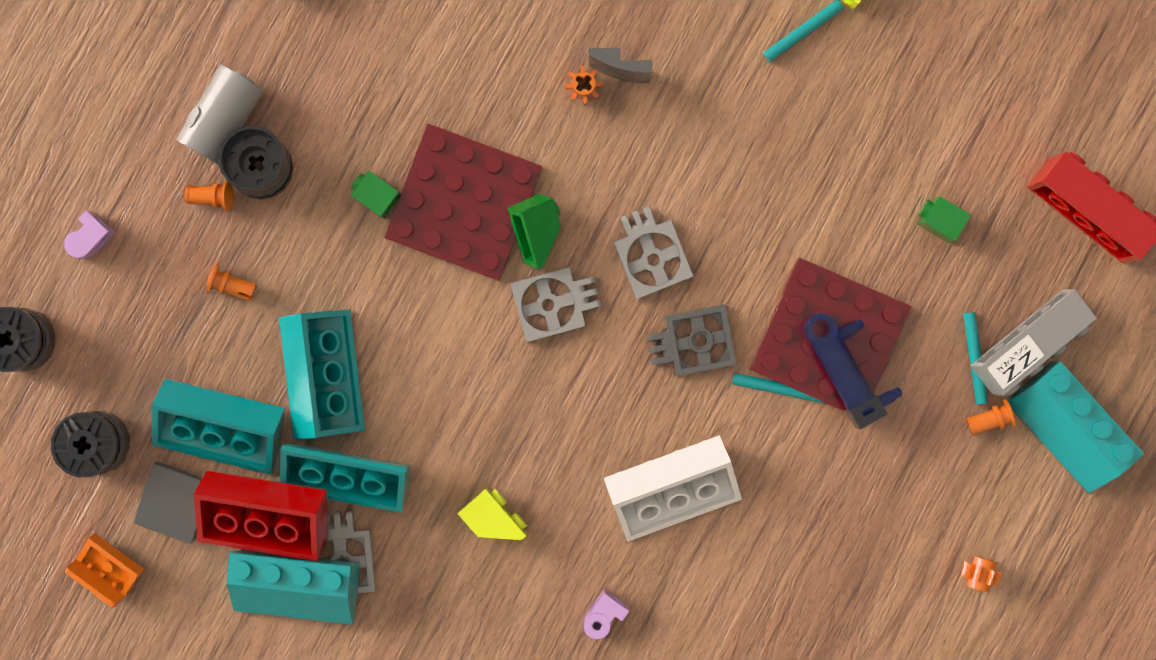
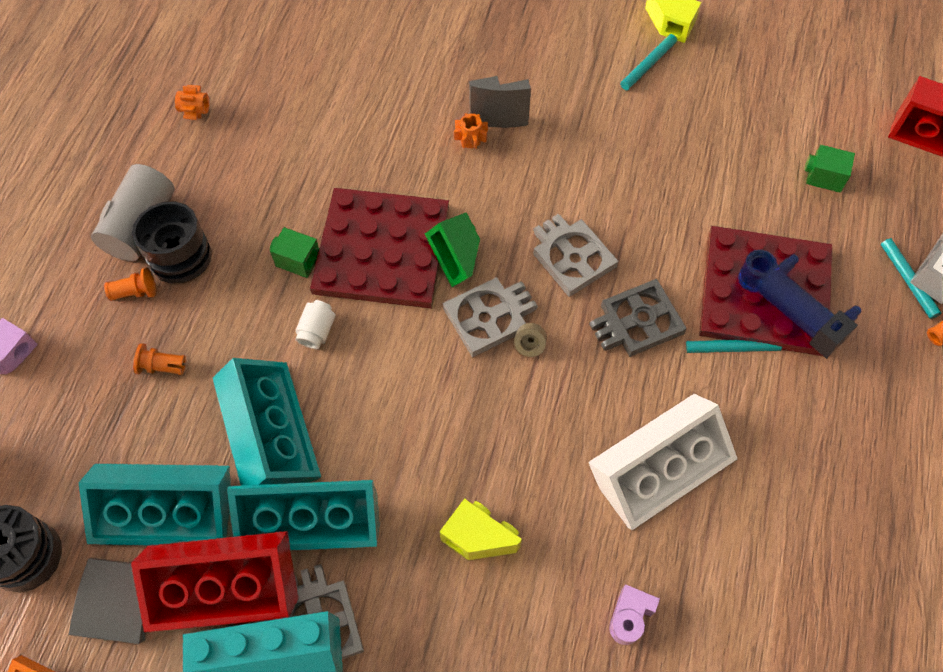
camera: 15 degrees left, 25 degrees down
(383, 279) = (314, 324): none -> white brick
(584, 342) = (530, 340): none -> dark tan tile

